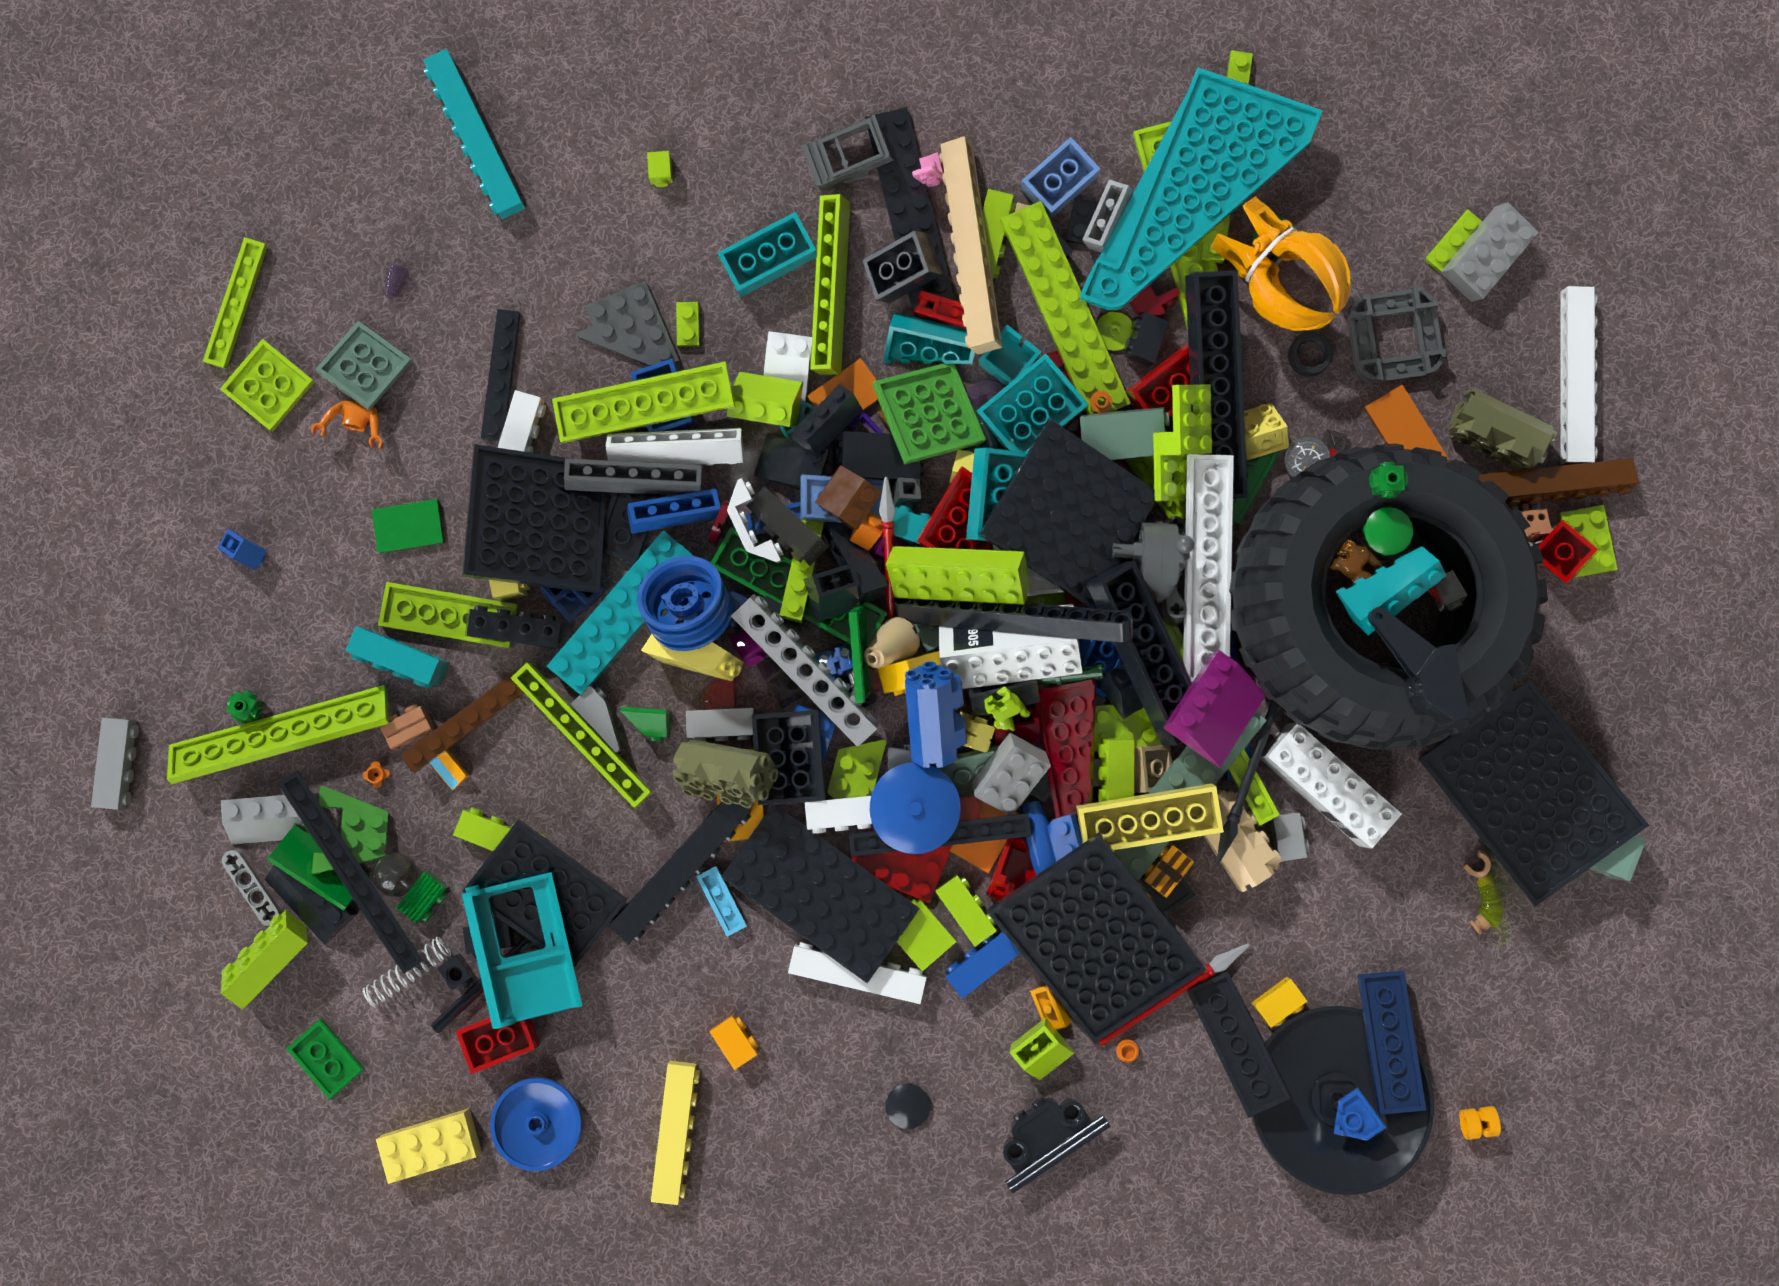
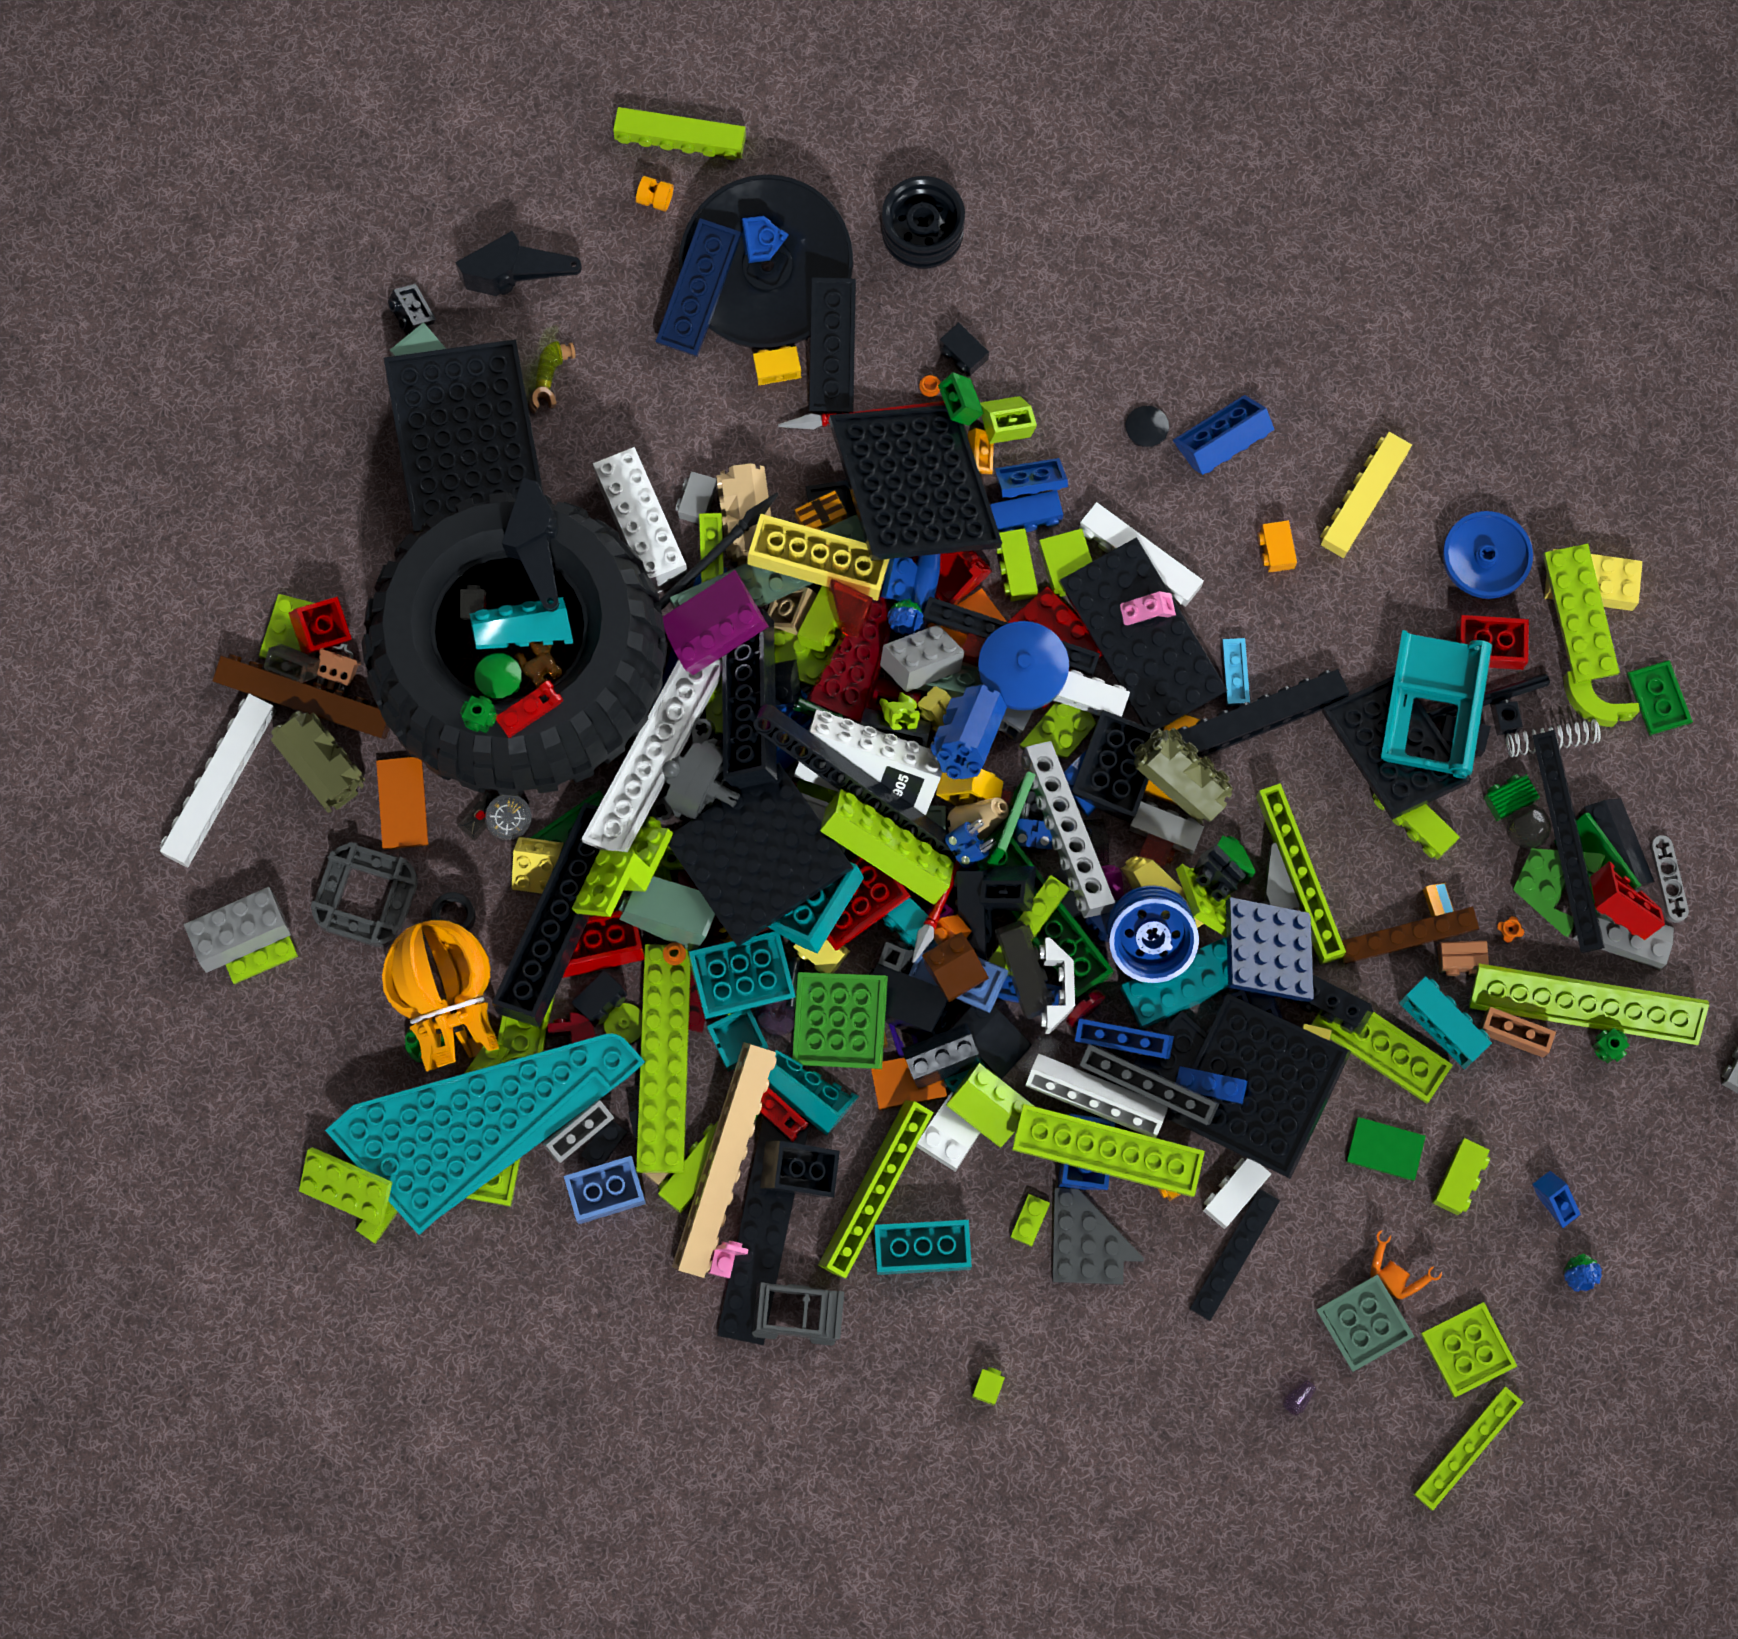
camera: 160 degrees left, 10 degrees down
(193, 493) = (1582, 1273): none -> blue piece
(263, 959) = (1680, 804): lime brick -> none
(274, 833) = (1623, 904): none -> red wedge
(331, 529) = (1462, 1177): none -> lime brick
(332, 679) = (1517, 1032): none -> nougat brick
(389, 1020) = (1591, 707): none -> lime arch
(424, 1102) = (1581, 613): none -> lime plate
(474, 134) = (1159, 1509): teal brick -> none
(576, 642) = (1269, 950): none -> plate
(579, 503) = (1212, 1084): none -> blue plate
(648, 662) = (1201, 902): none -> lime plate
(651, 692) = (1218, 873): none -> black hips
(825, 916) = (1147, 607): none -> bright pink bracket
(832, 1131) = (1224, 434): none -> blue slope
(889, 614) = (967, 845): none -> blue piece
(991, 1000) = (1031, 478): none -> blue plate
(1043, 805) = (905, 617): none -> blue piece
(1046, 1137) = (1036, 346): black brick -> none
(1092, 1047) = (960, 399): none -> green brick
(1096, 779) = (849, 608): none -> clear red slope
(1113, 1101) = (963, 349): none -> black brick
(1243, 1223) = (930, 193): none -> black wheel
(1280, 78) = (345, 1186): none -> lime plate
(1344, 509) = (528, 709): none -> red plate
(1487, 1197) = (679, 133): none -> lime brick
(1572, 503) = (291, 663): none -> clear smoke brick
(1584, 982) = (503, 262): none -> black slope
(1646, 898) = (410, 308): none -> black bracket

